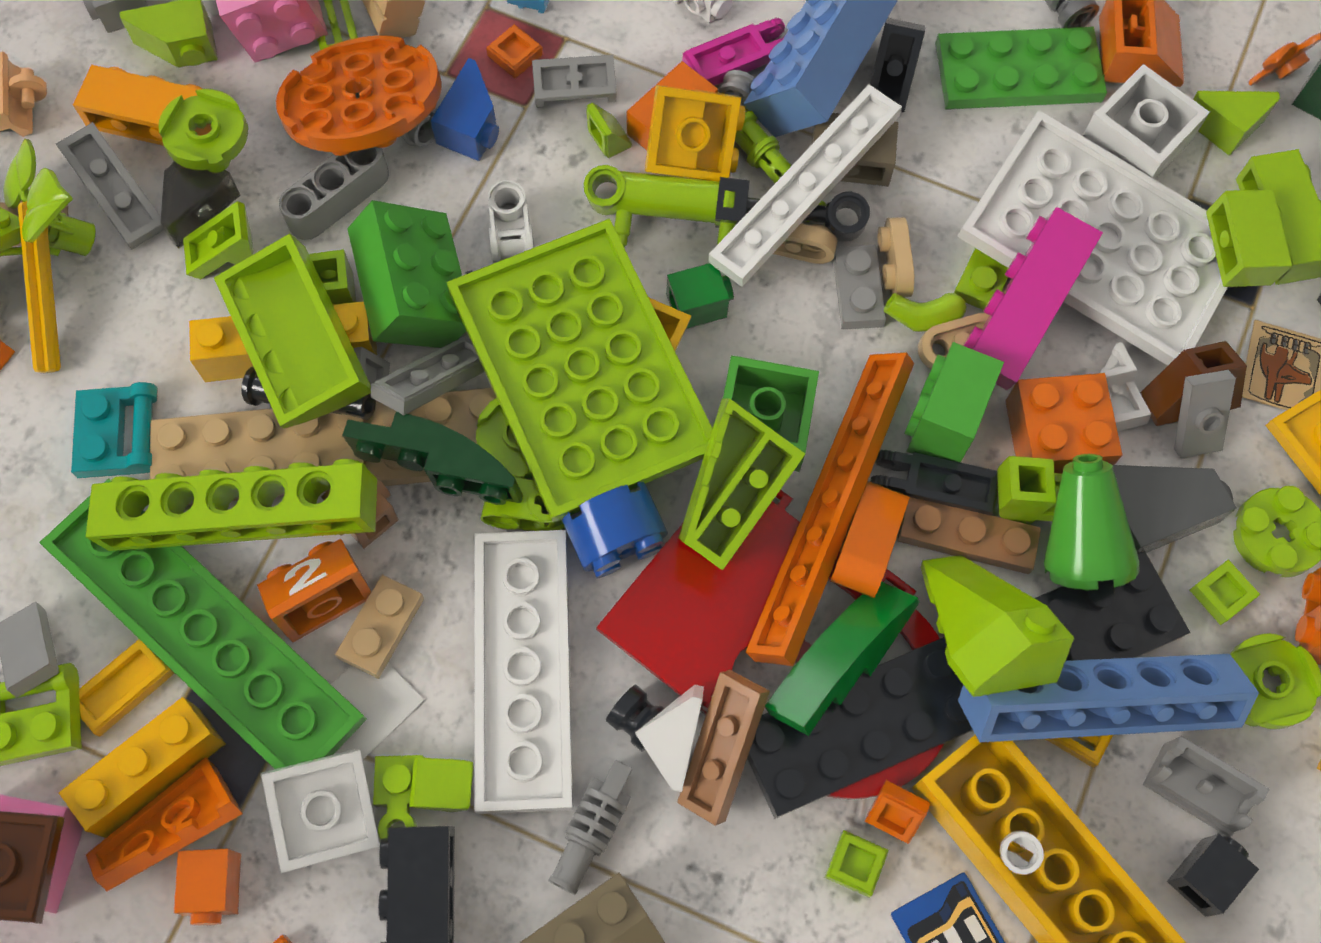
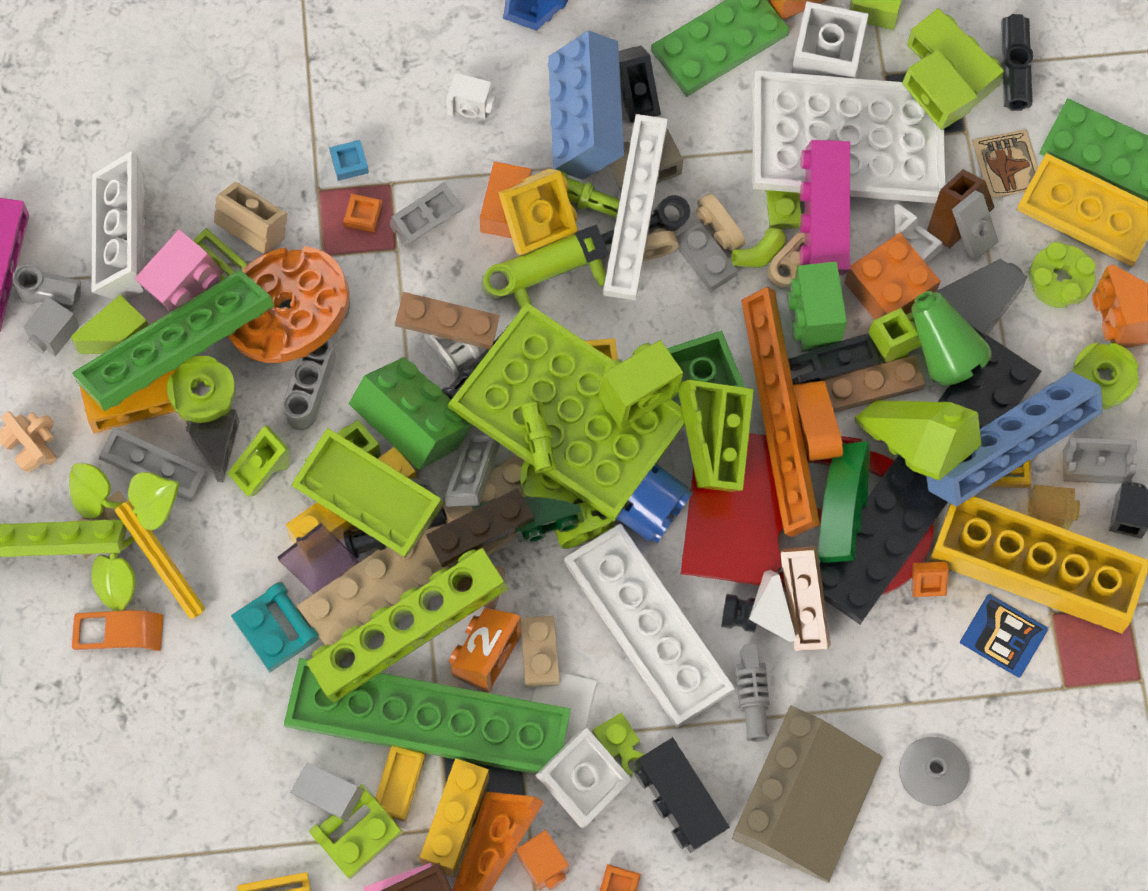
camera: 30 degrees left, 0 degrees up
(200, 378) = (317, 558): none -> piece
(206, 62) = (172, 340): none -> bright green plate
(386, 440) = (480, 527): none -> dark brown plate
(441, 784) = (646, 721): lime slope -> none
(466, 115) = (367, 278): blue slope -> none
(514, 196) = (447, 320): none -> medium nougat plate
(518, 373) = (538, 437): none -> lime pin
(606, 131) = (468, 239): lime slope -> none
(672, 372) = (640, 383): none -> lime brick
(700, 293) = (606, 319): green brick -> none
(737, 50) = (520, 133): dark pink hinge -> none
(738, 84) = (539, 158): light grey bush -> none
(856, 863) = (922, 624): lime tile -> none
(1015, 861) = (1016, 548): white hinge -> none
(1111, 811) = (1054, 505): none -> clear yellow brick
(1224, 592) = (1048, 334): lime plate -> none

